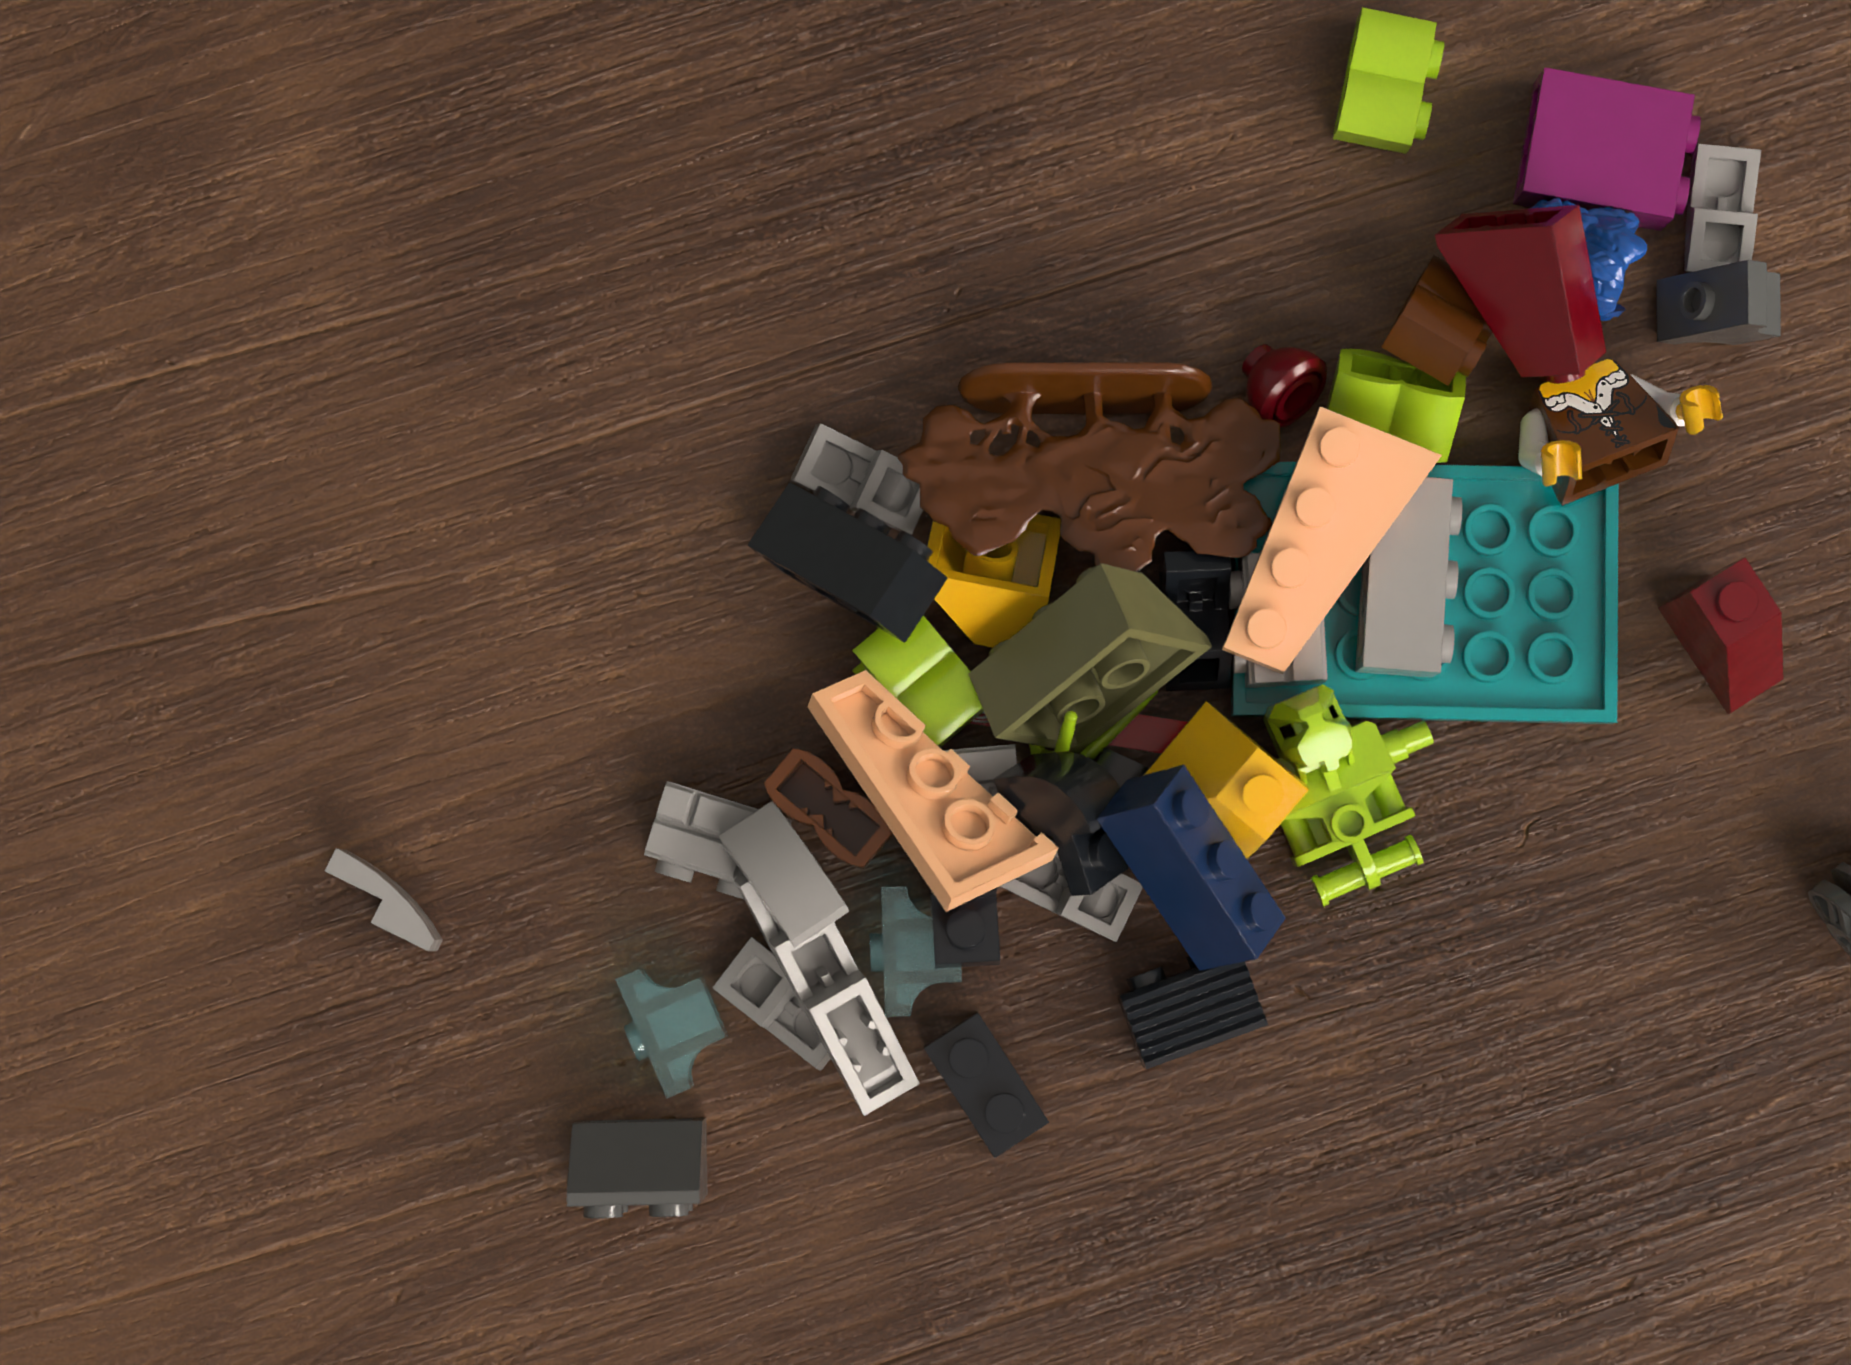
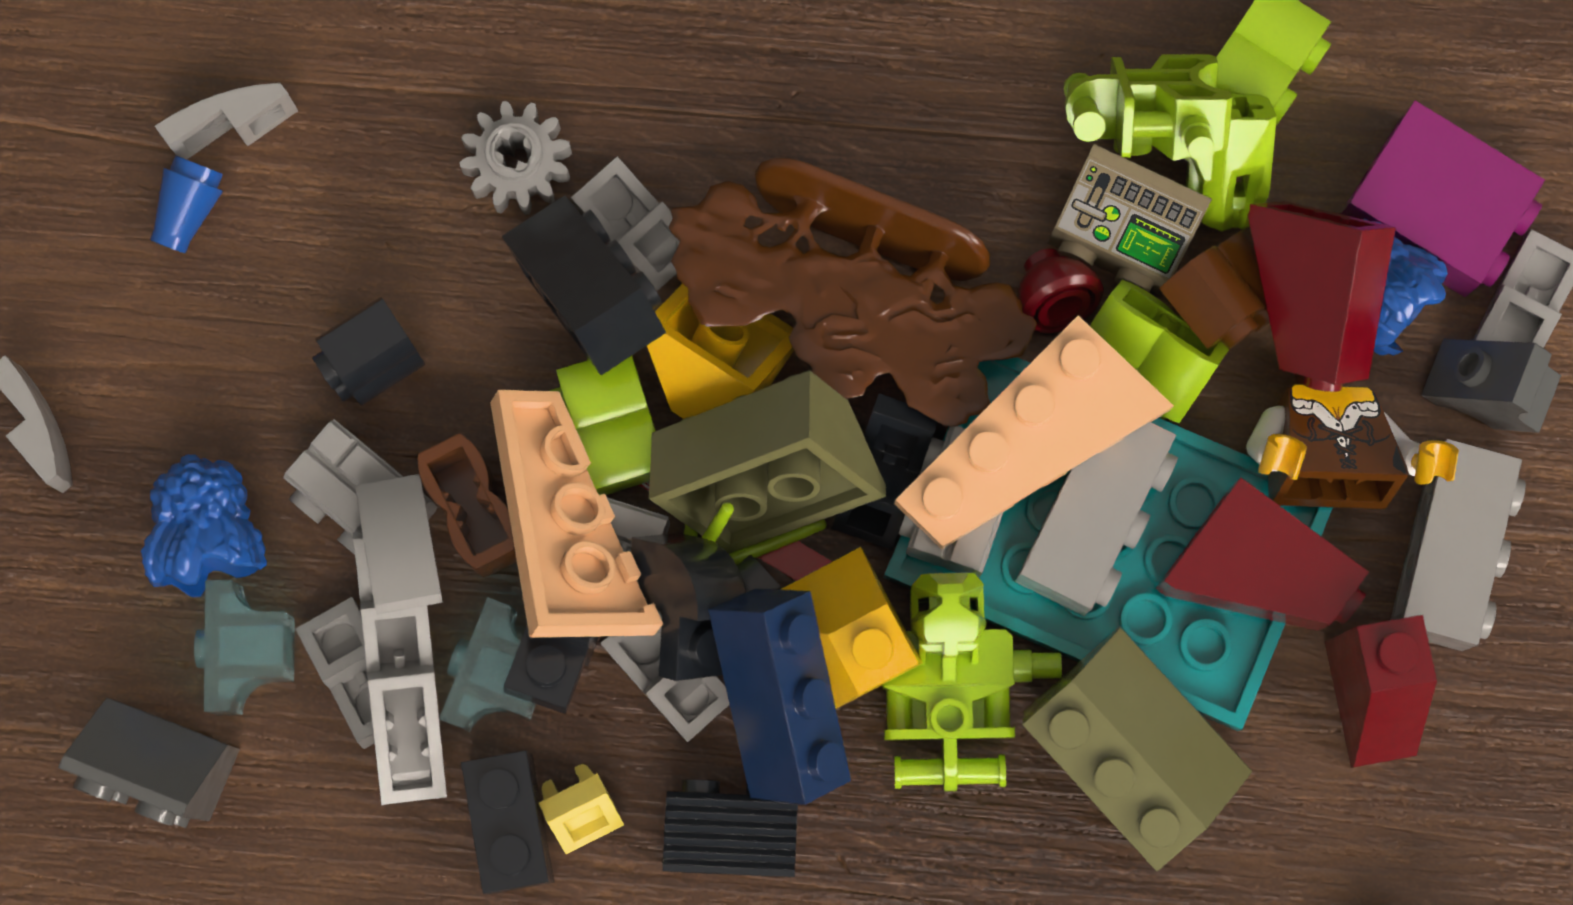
camera: 20 degrees right, 5 degrees down
(433, 633) = (184, 202): none -> blue cone
(452, 523) = (248, 109): none -> light grey slope
(586, 930) = (200, 526): none -> blue hair
(673, 707) = (366, 354): none -> black brick
(707, 479) = (504, 138): none -> light grey gear
(1046, 1046) = (580, 811): none -> light yellow tile
(1324, 293) = (1128, 220): none -> slope
(1331, 172) = (1186, 119): none -> lime piece
(1529, 779) = (1137, 748): none -> olive slope
(1578, 563) = (1265, 565): none -> dark red slope
(1749, 474) = (1460, 547): none -> light grey brick

